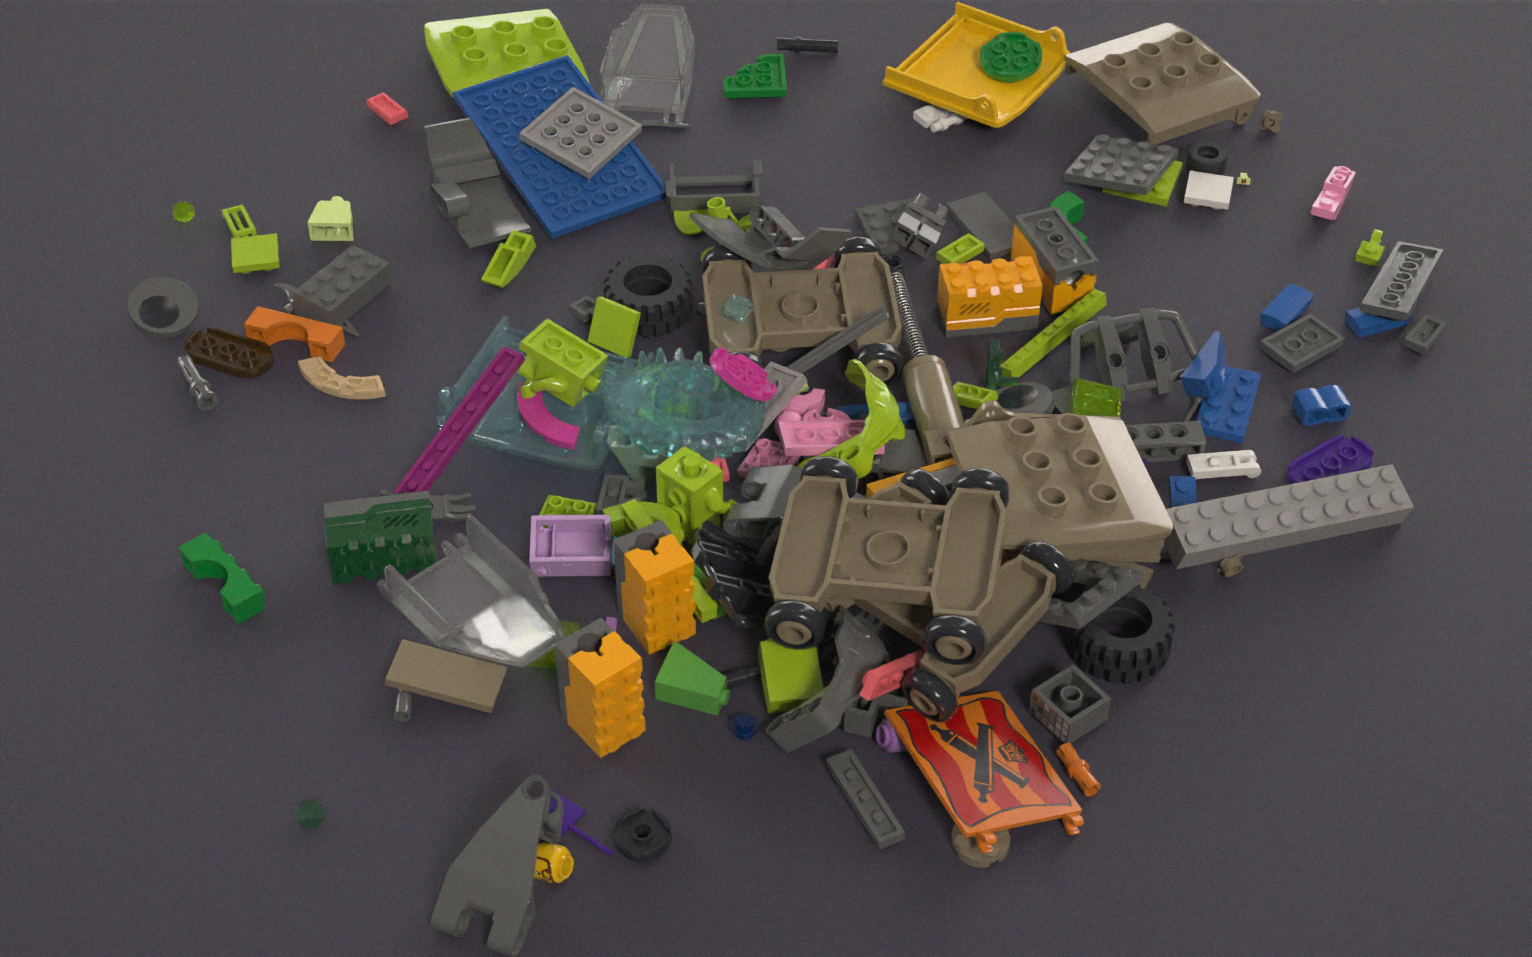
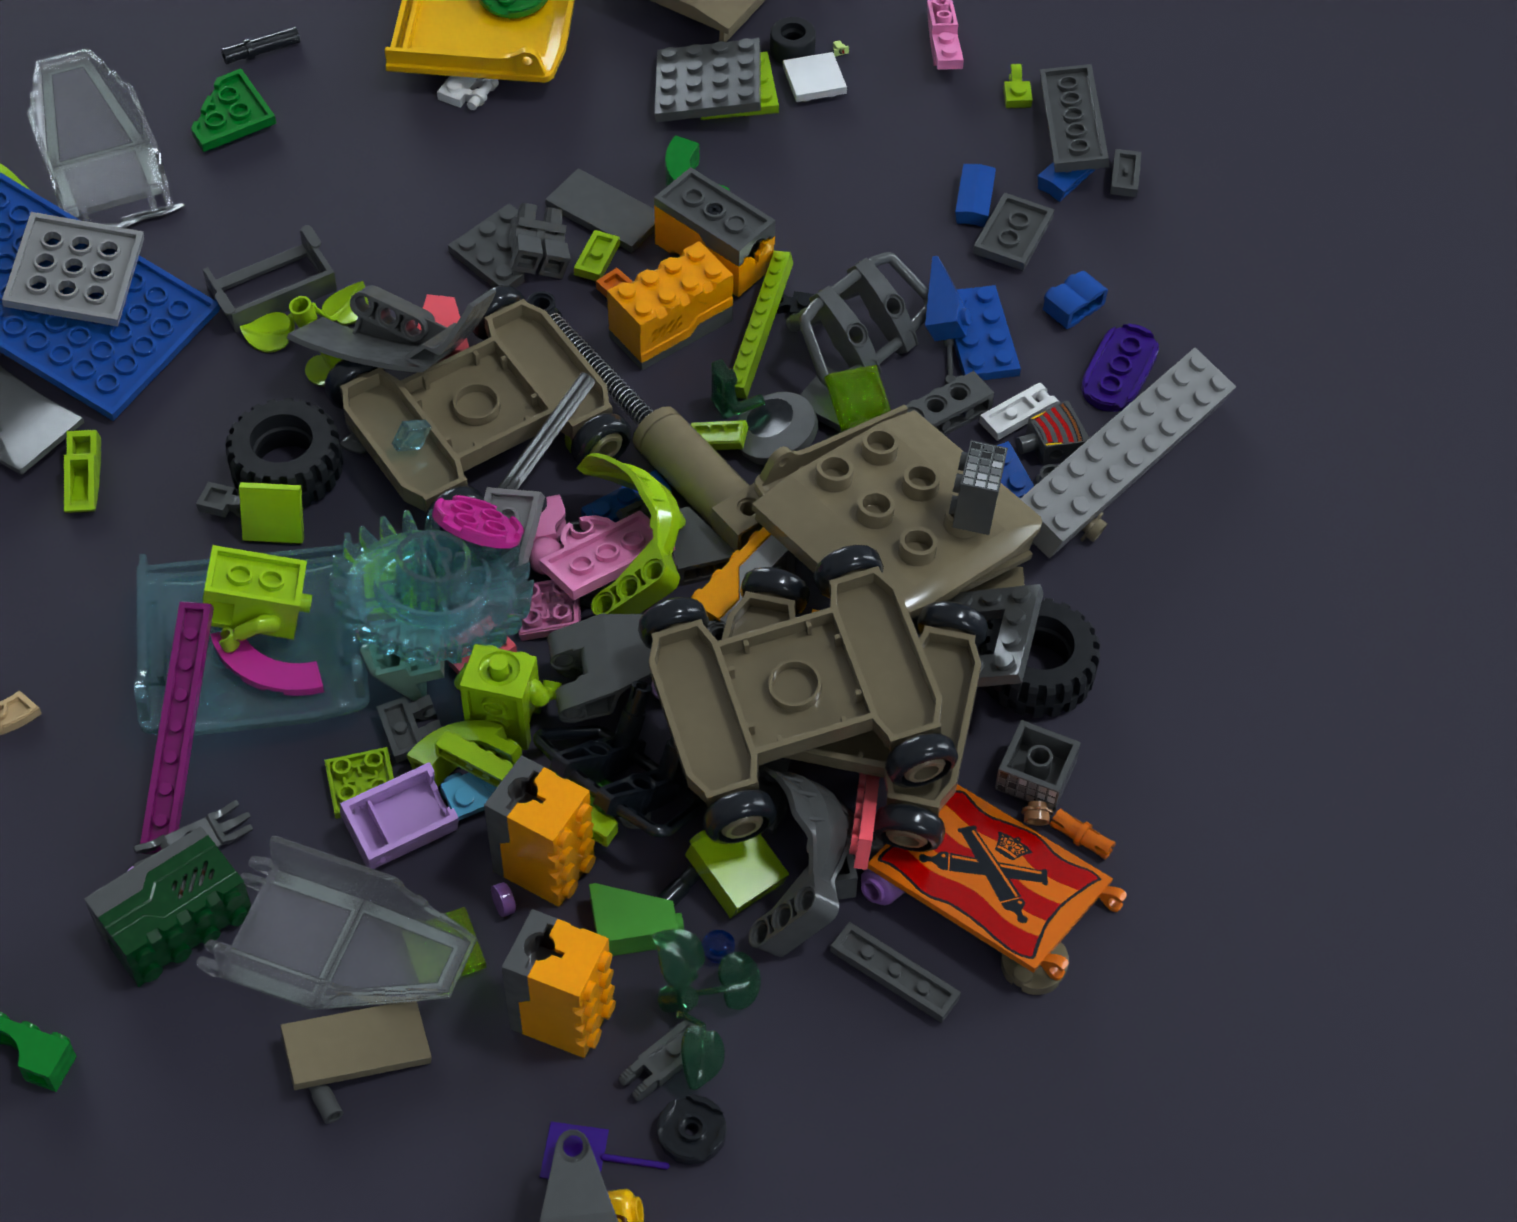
camera: 30 degrees left, 10 degrees up
(654, 781) = (659, 1061): none -> dark grey hinge
(742, 750) = (679, 958): none -> clear green plant
(1049, 739) = (1037, 813): none -> medium nougat plate
(1120, 472) = (977, 487): none -> dark grey brick
(1237, 481) = (1053, 434): none -> dark grey torso

